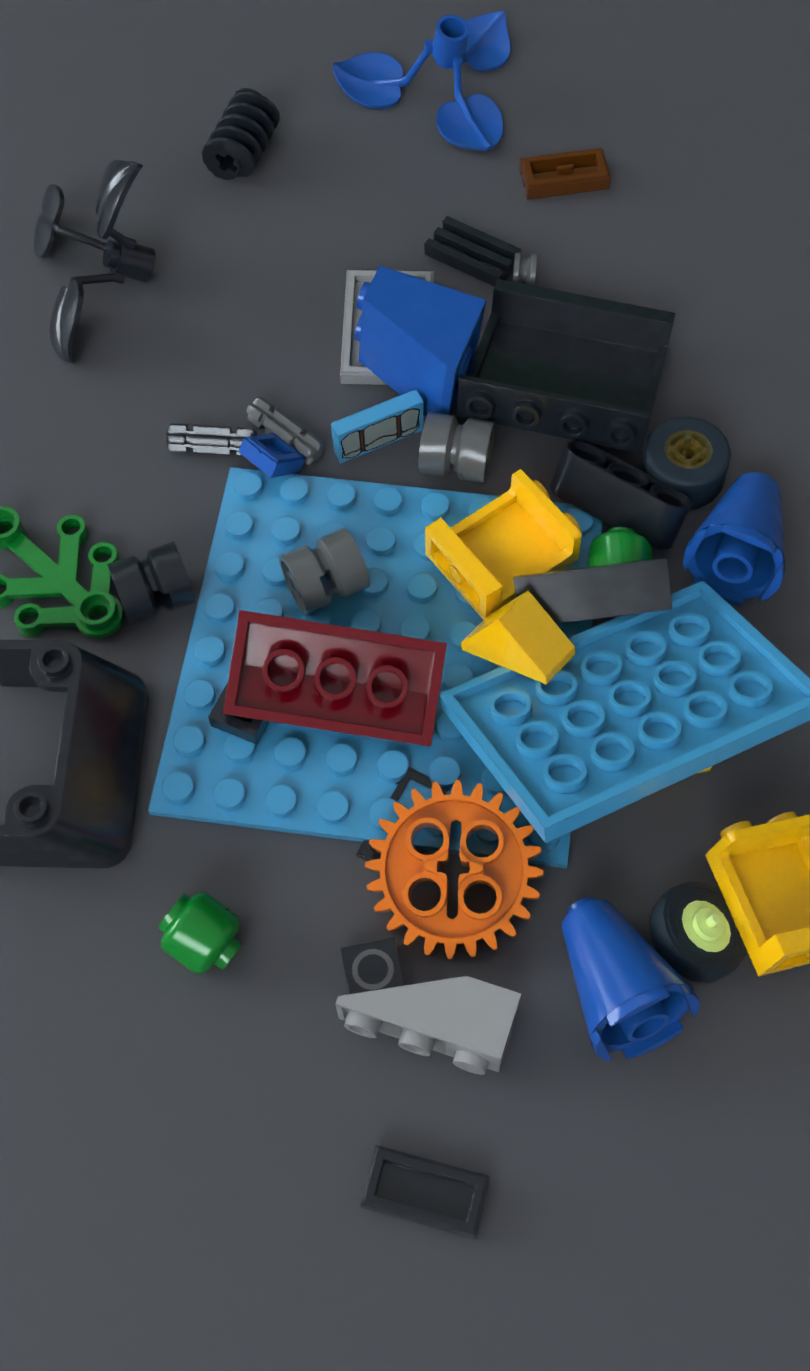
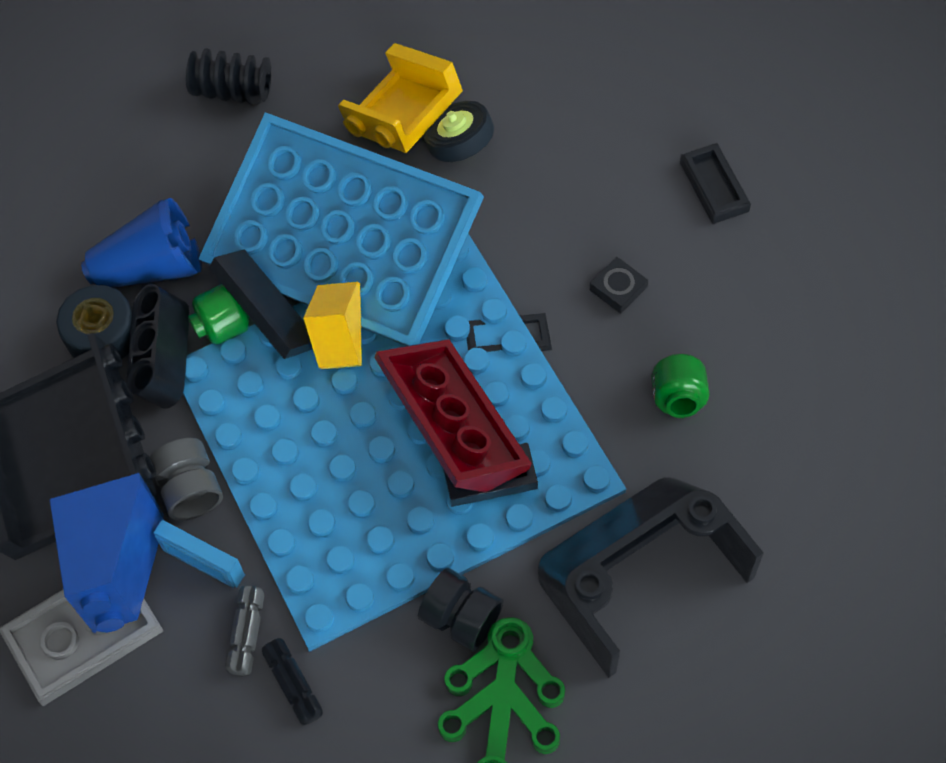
camera: 125 degrees left, 0 degrees up
(272, 455) = (279, 615): blue tile -> none
(324, 571) = (364, 479): dark grey wheel -> none
(446, 1015) = (613, 223): light grey slope -> none
(503, 871) = (523, 272): orange gear -> none
(504, 539) = (257, 389): yellow panel -> none
(622, 982) = (522, 146): blue cone -> none

